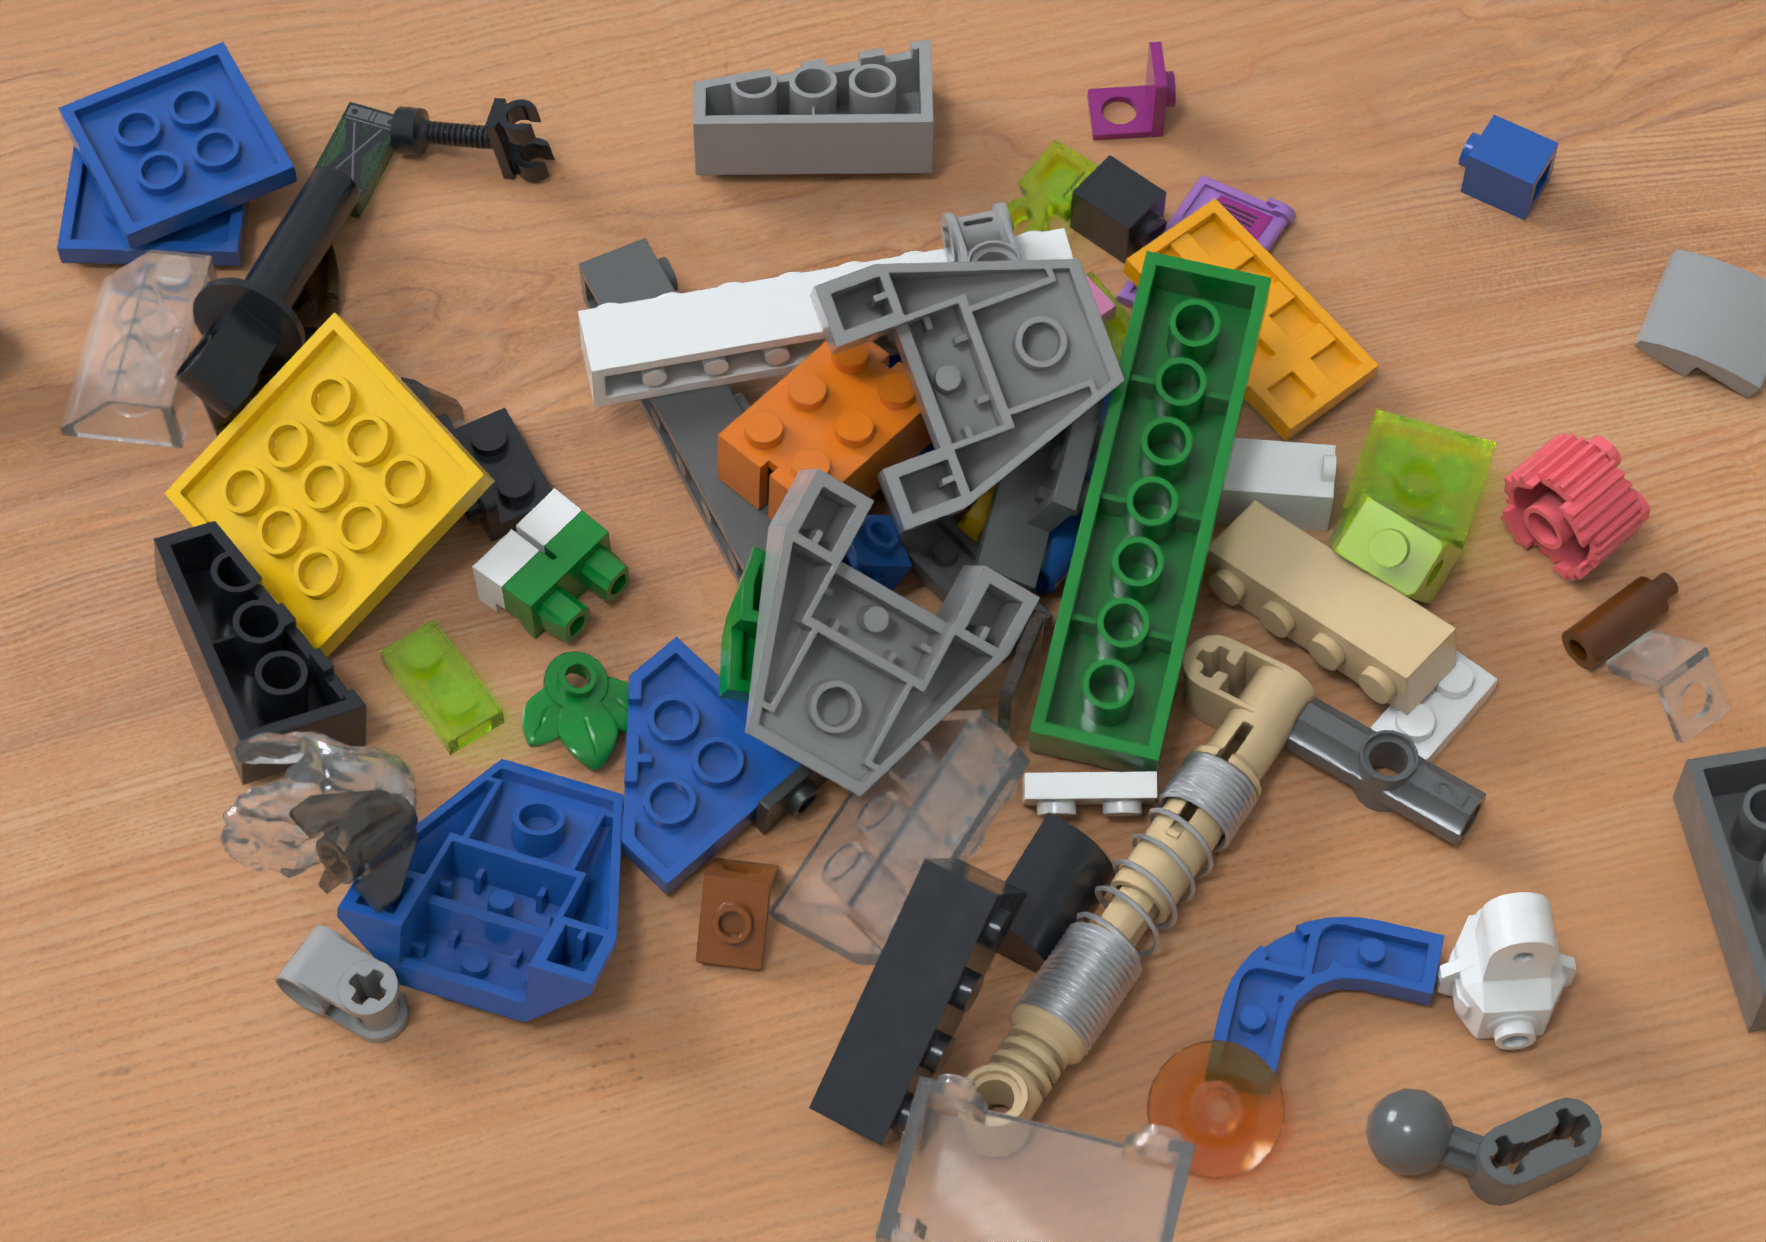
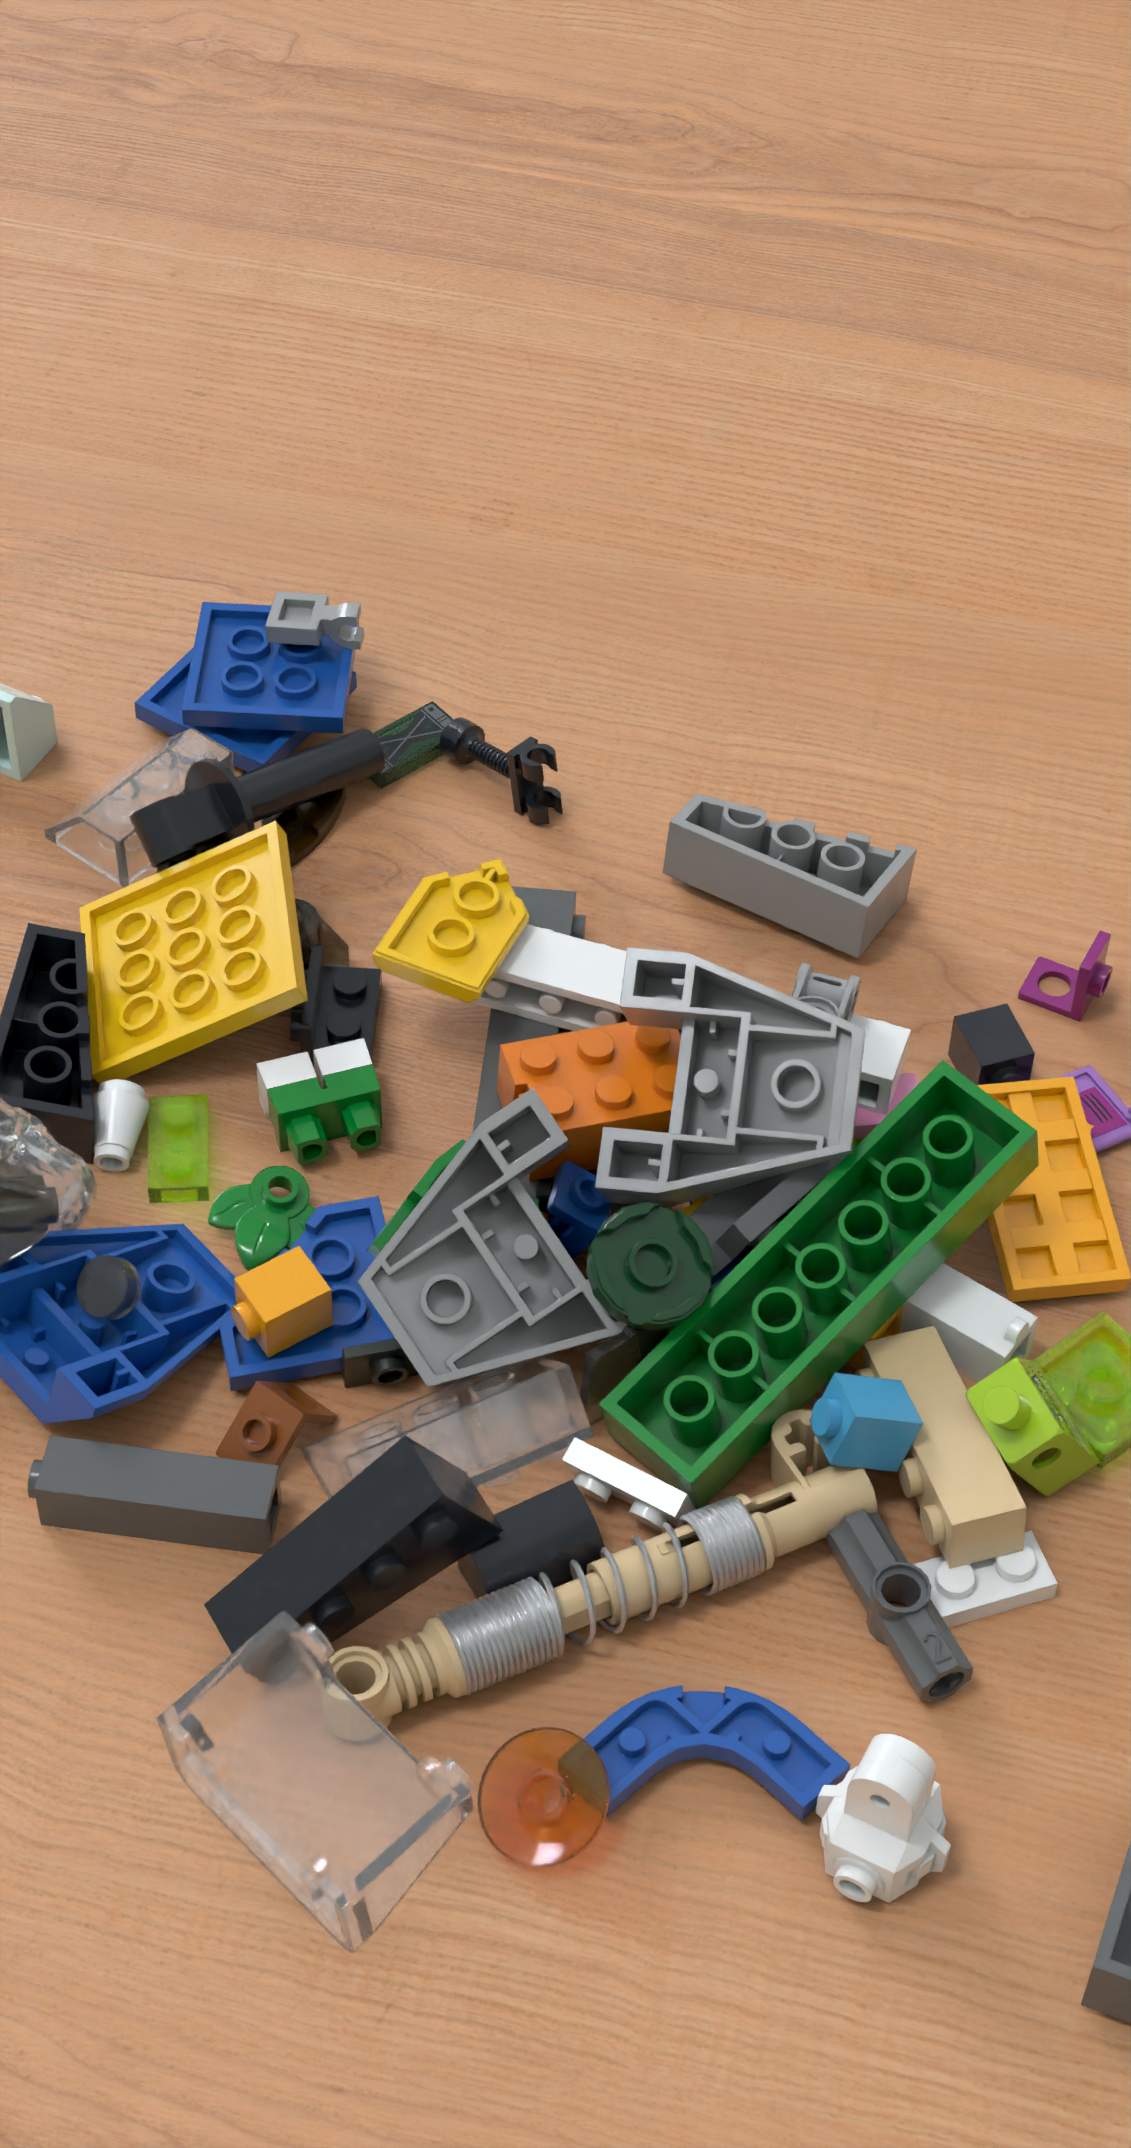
camera: 30 degrees right, 10 degrees down
(188, 80) = (308, 616): none -> light grey plate
(375, 684) = (118, 1121): none -> white cone
(501, 860) = (108, 1287): none -> clear smoke tile
(595, 341) = (454, 931): none -> yellow tile
(675, 788) = (282, 1302): none -> light orange brick
(680, 1030) = (156, 1494): none -> dark grey brick
(1009, 580) = (650, 1266): none -> dark green tile
(1049, 187) = (939, 1011): clear neon green plate -> none
(1270, 623) = (865, 1422): none -> dark azure brick
(1415, 1135) = (703, 1915): dark grey beam -> none

